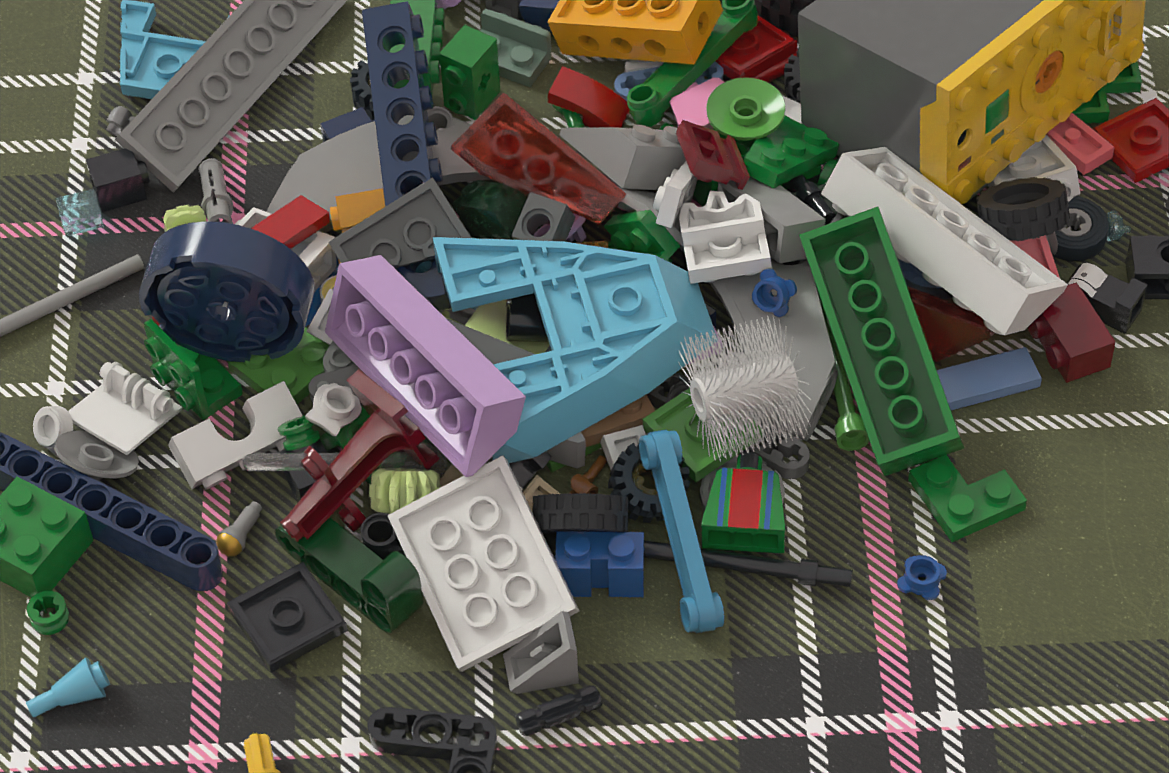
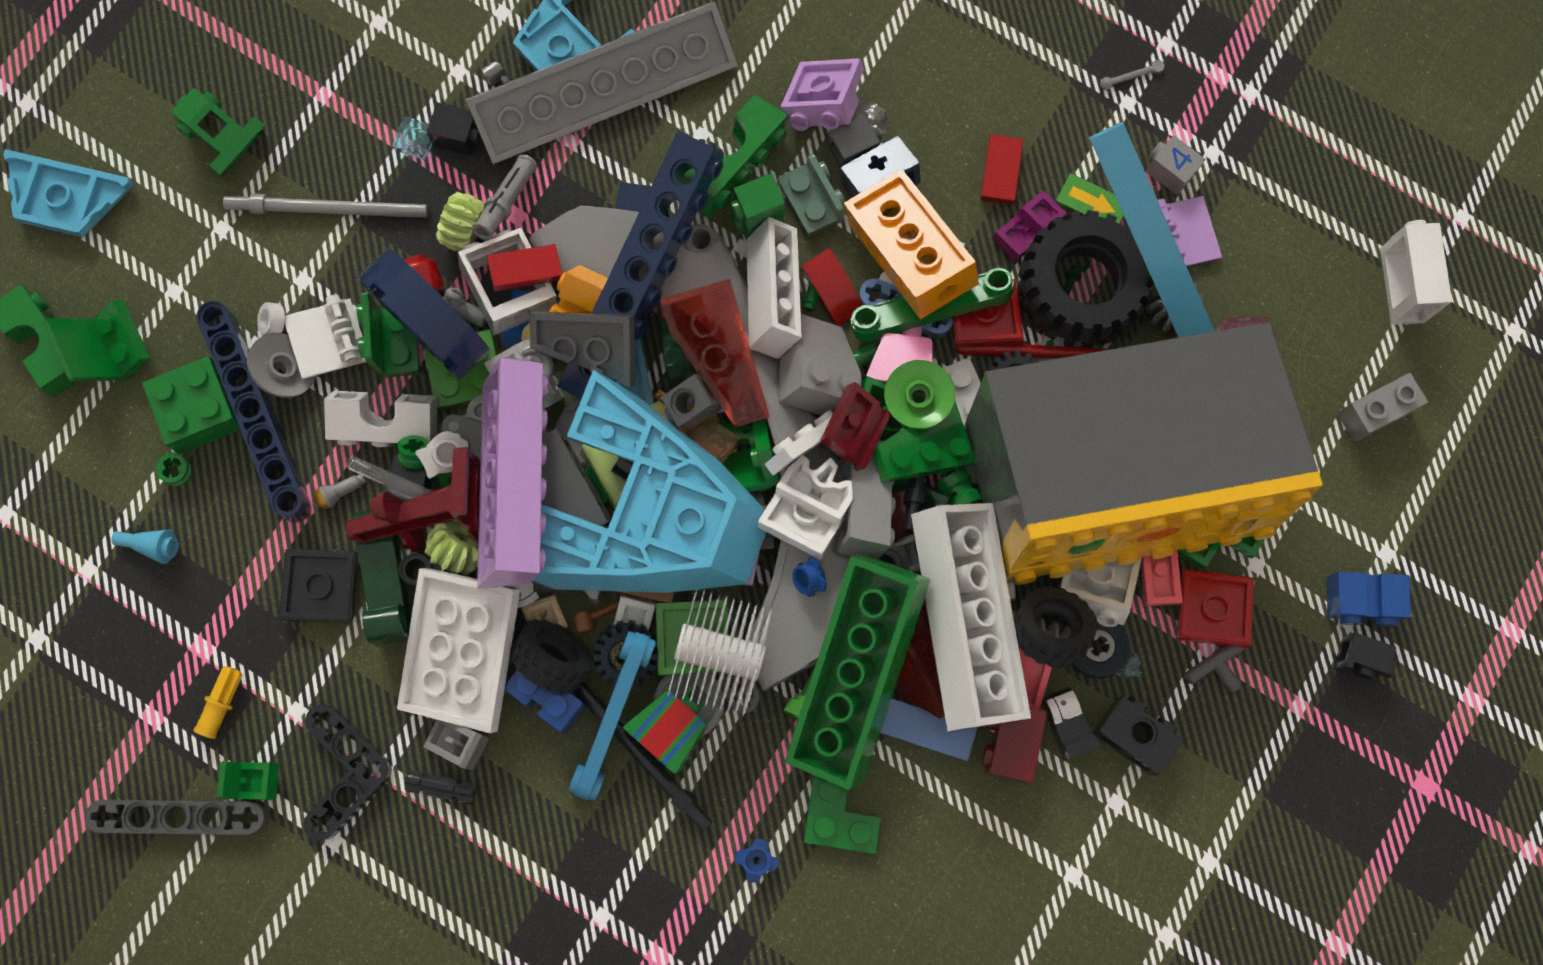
camera: 30 degrees right, 25 degrees up
(559, 114) = (773, 288): none -> white brick

